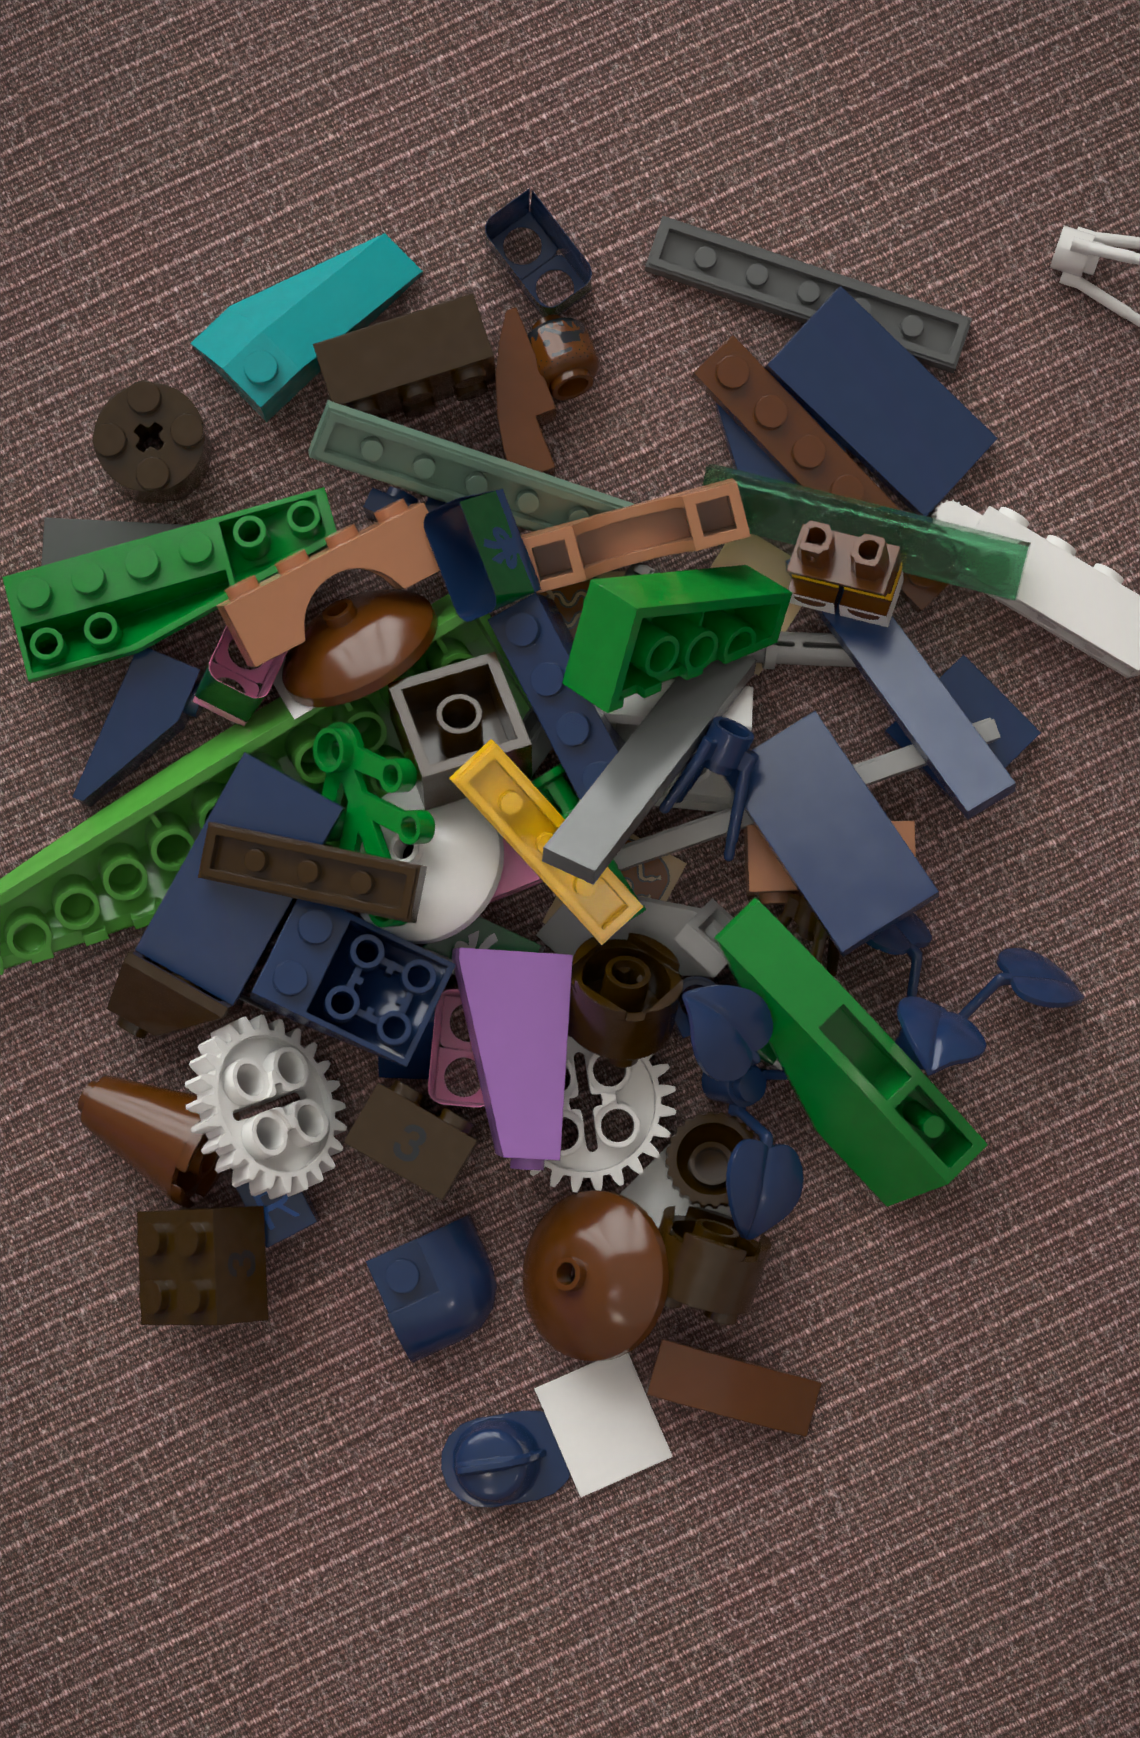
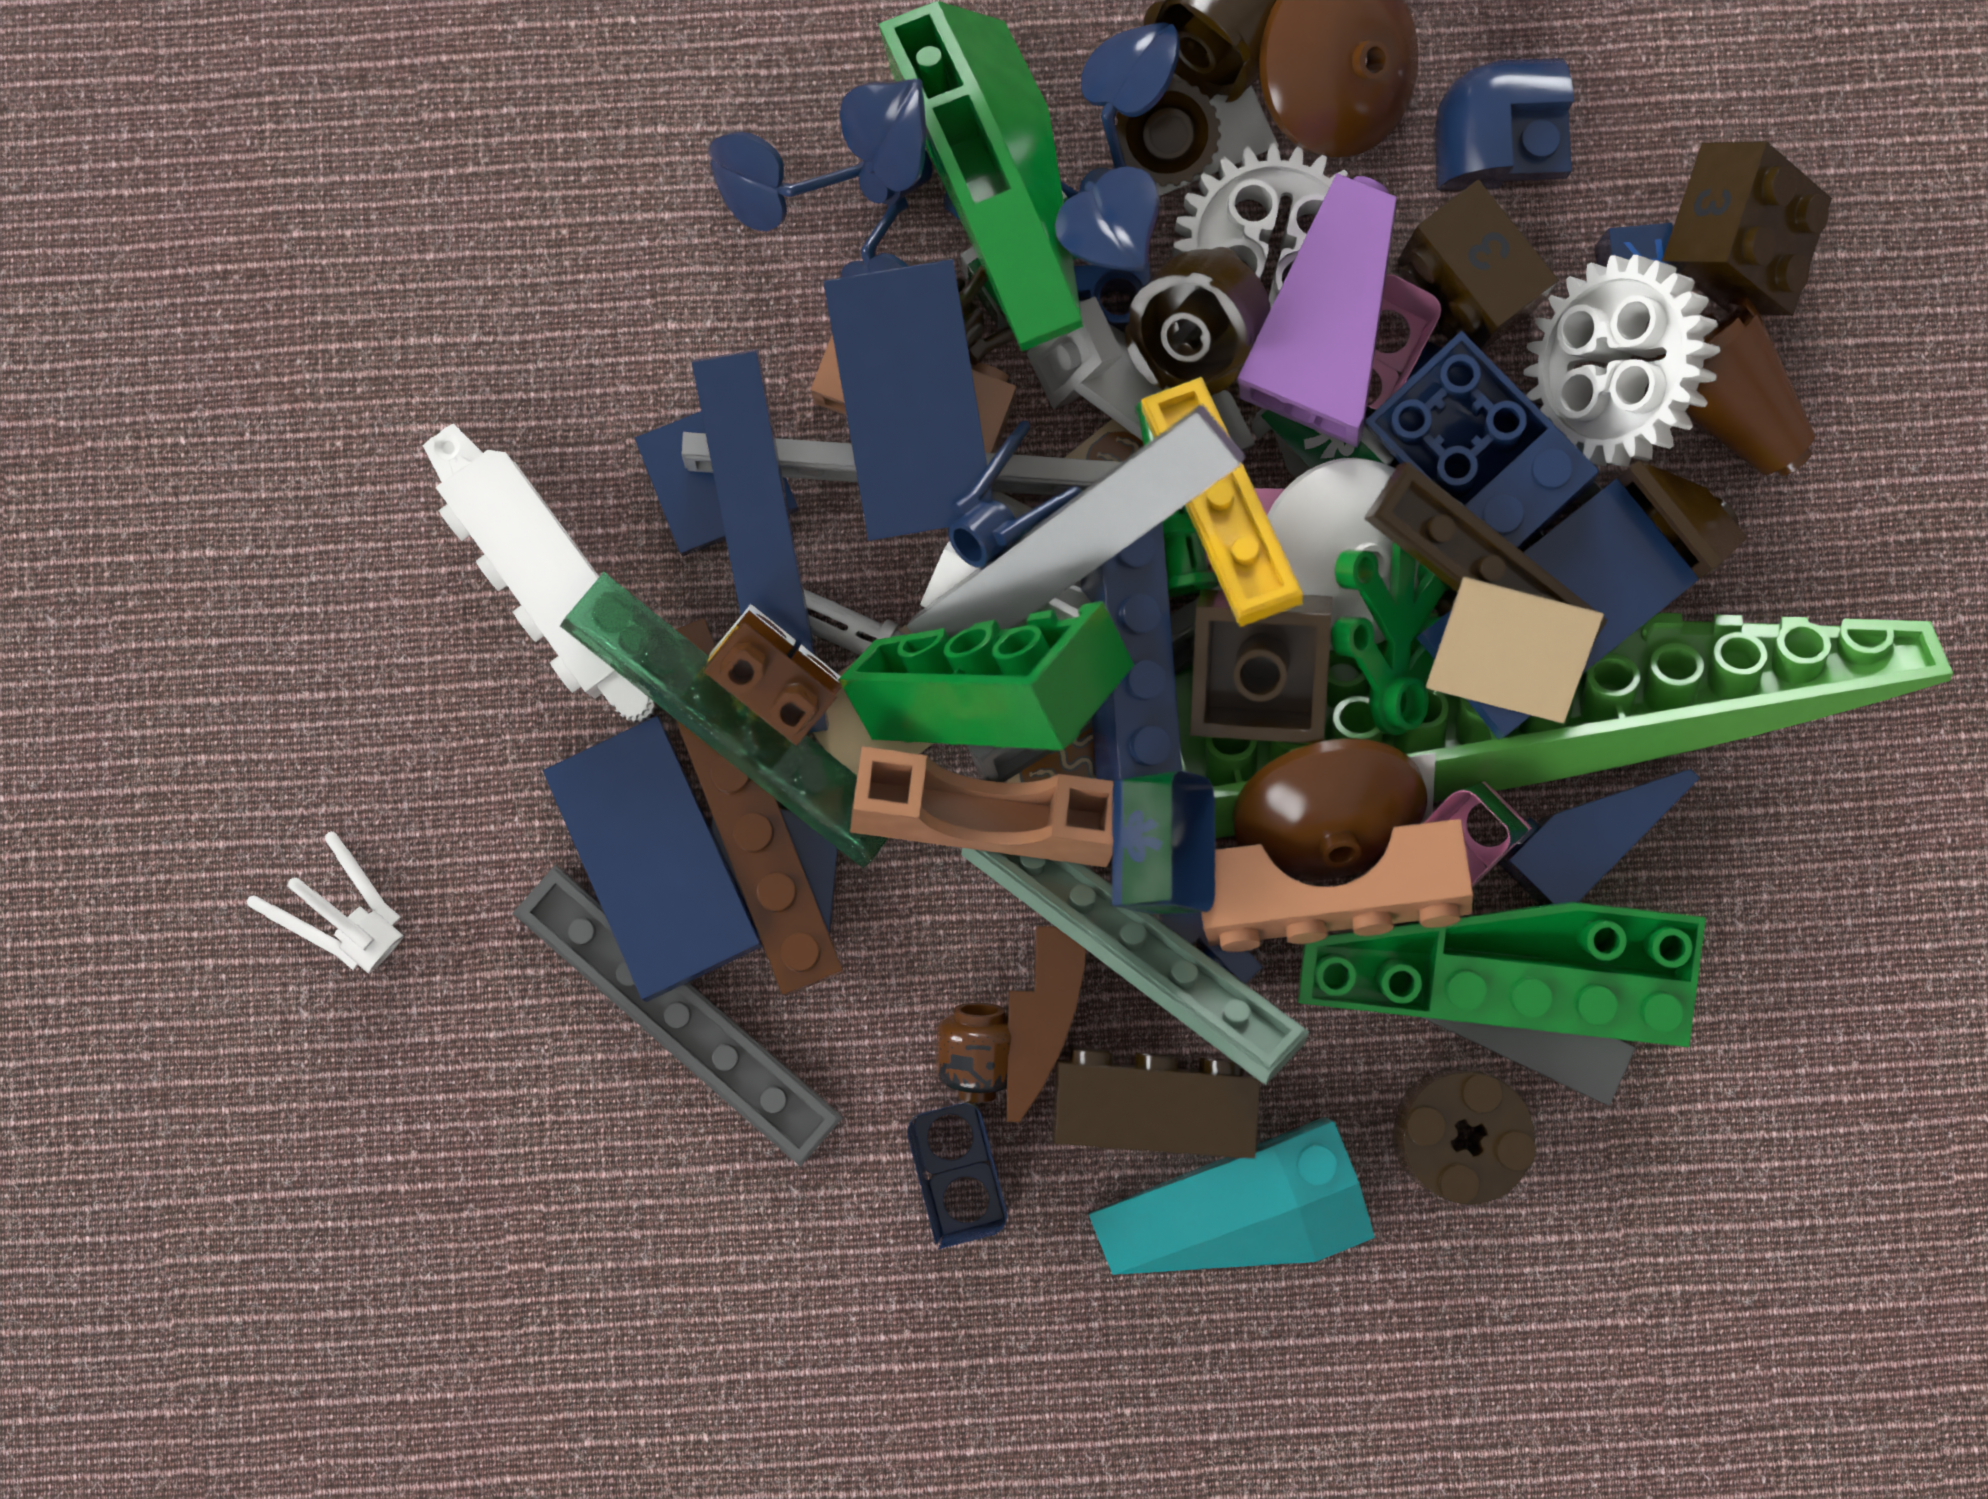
camera: 155 degrees left, 0 degrees up
(264, 817) = (1514, 650): none -> tan sticker

